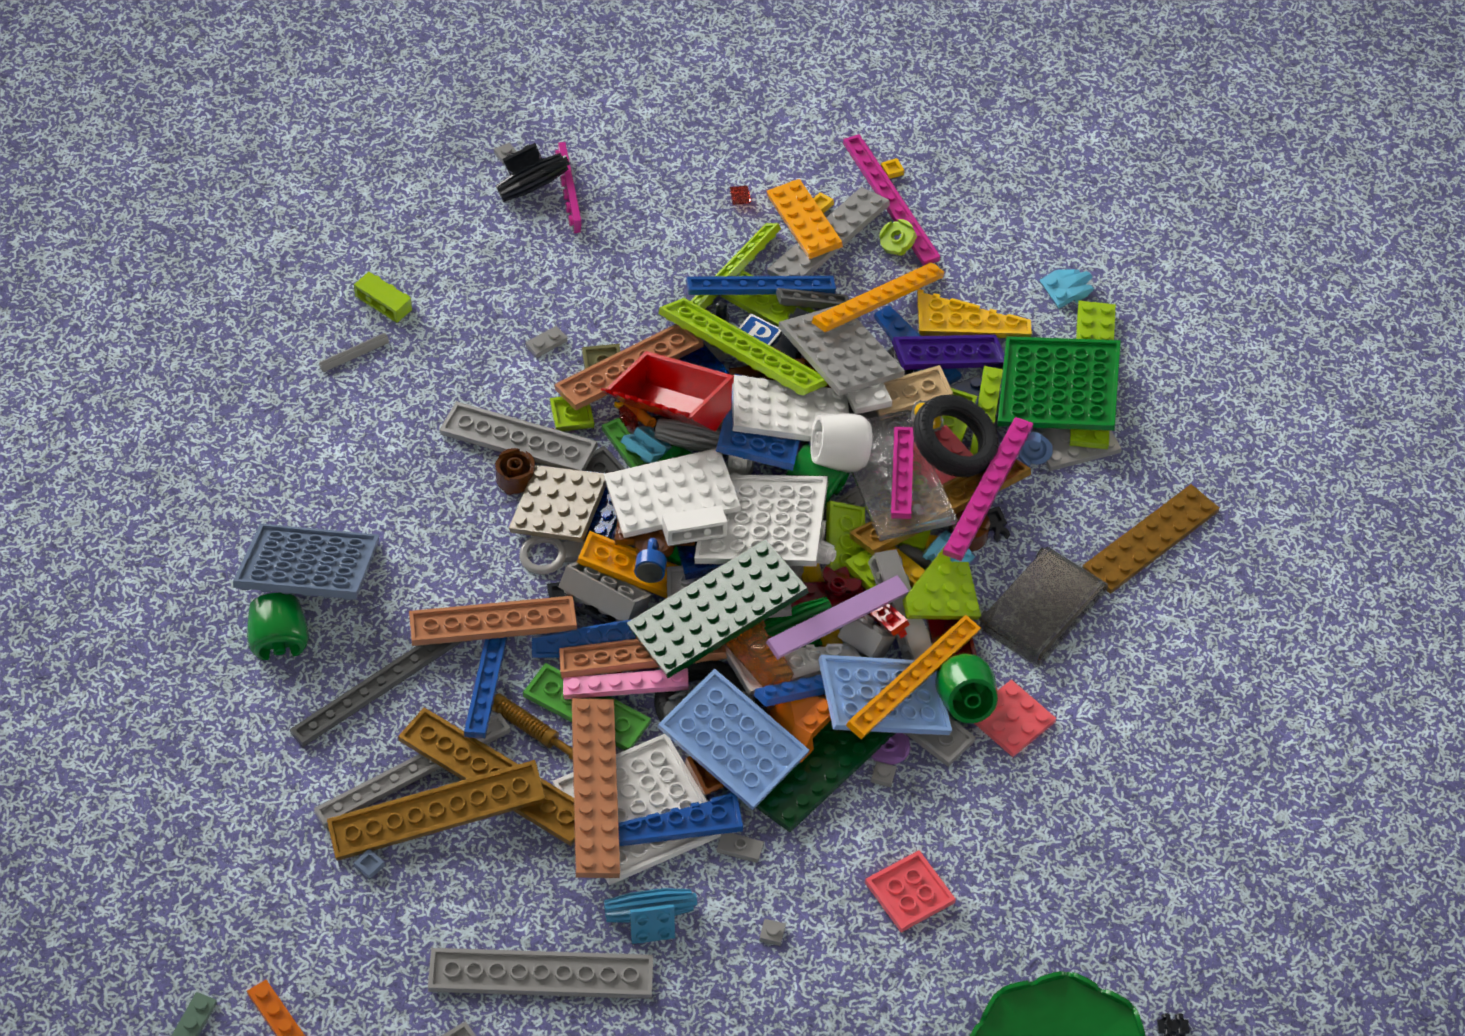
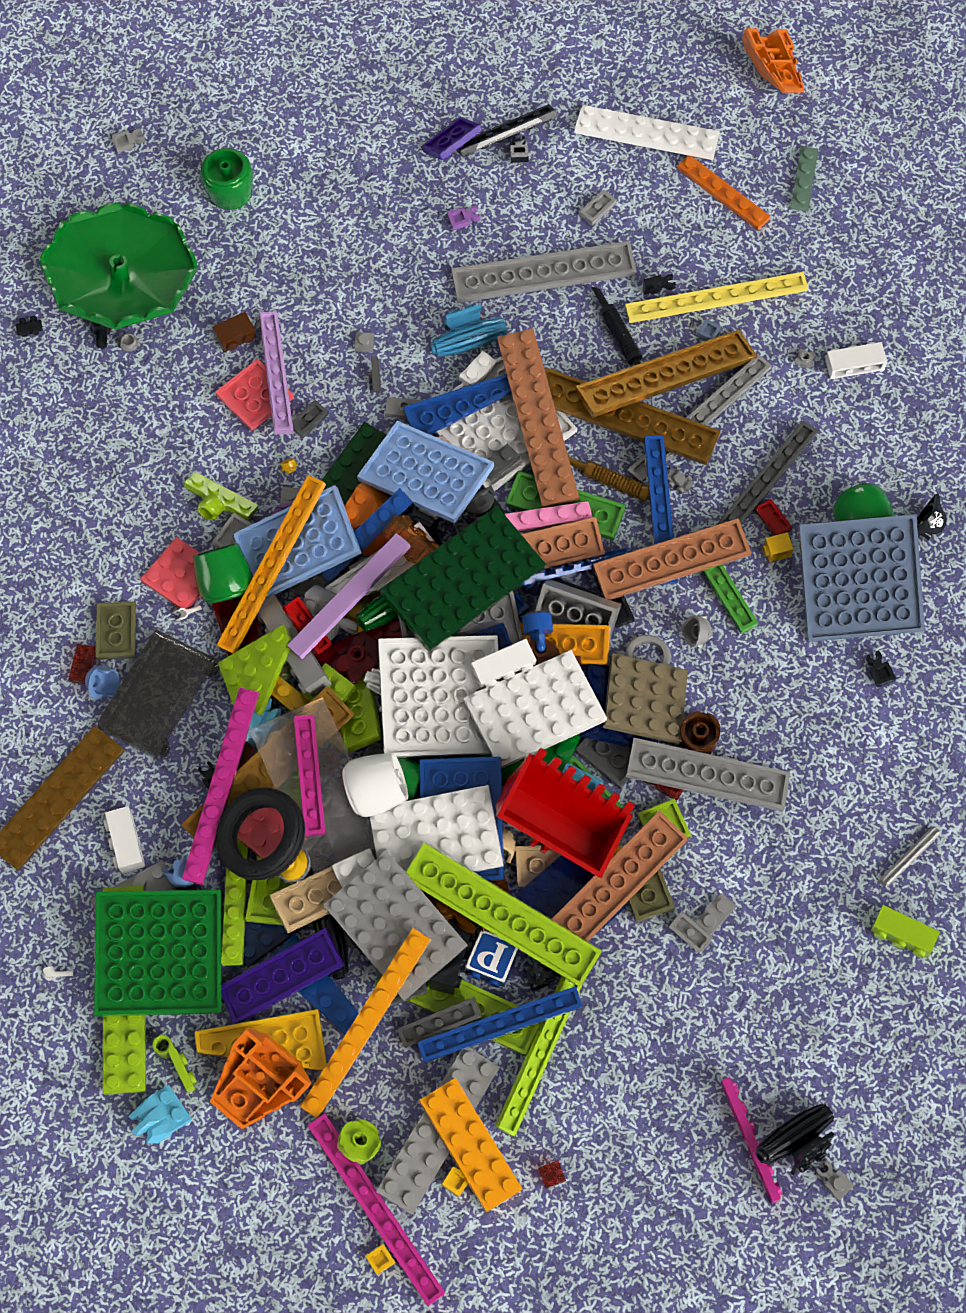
camera: 175 degrees right, 15 degrees up
(212, 620) = (931, 519): none -> black hat
(216, 797) = (856, 360): none -> white brick
(272, 819) = (805, 363): none -> light grey plate
(318, 498) = (880, 672): none -> black plate
(346, 902) = (716, 297): none -> light yellow plate
(370, 654) = (773, 518): none -> red plate
(377, 623) = (778, 547): none -> yellow brick
(412, 929) = (655, 284): none -> black plate
(440, 581) = (731, 598): none -> bright green plate
(455, 710) = (679, 479): none -> light grey piece
(472, 878) = (618, 329): none -> black piece
(483, 561) = (696, 630): none -> light grey helmet
(573, 329) = (691, 932): none -> light grey plate
(648, 756) = (502, 461): none -> dark grey plate
(648, 861) = (478, 369): none -> white plate
(768, 881) = (374, 375): none -> dark grey plate
(851, 851) = (309, 419): none -> dark grey plate
(882, 907) = (275, 373): none -> lavender tile
(885, 807) = (289, 465): none -> yellow plate
(925, 967) = (234, 332): none -> reddish brown brick
(963, 783) = (218, 498): none -> lime plate
(972, 286) = (258, 1079): none -> orange wedge
(1013, 674) = (185, 612): none -> white hand
(1056, 327) = (179, 1061): none -> lime plate
(1084, 672) = (116, 630): none -> olive plate
(1086, 487) = (124, 840): none -> white brick
(1102, 625) = (102, 681): none -> medium blue helmet
(1121, 647) = (82, 663): none -> clear red plate
(1160, 400) = (50, 974): none -> white hand

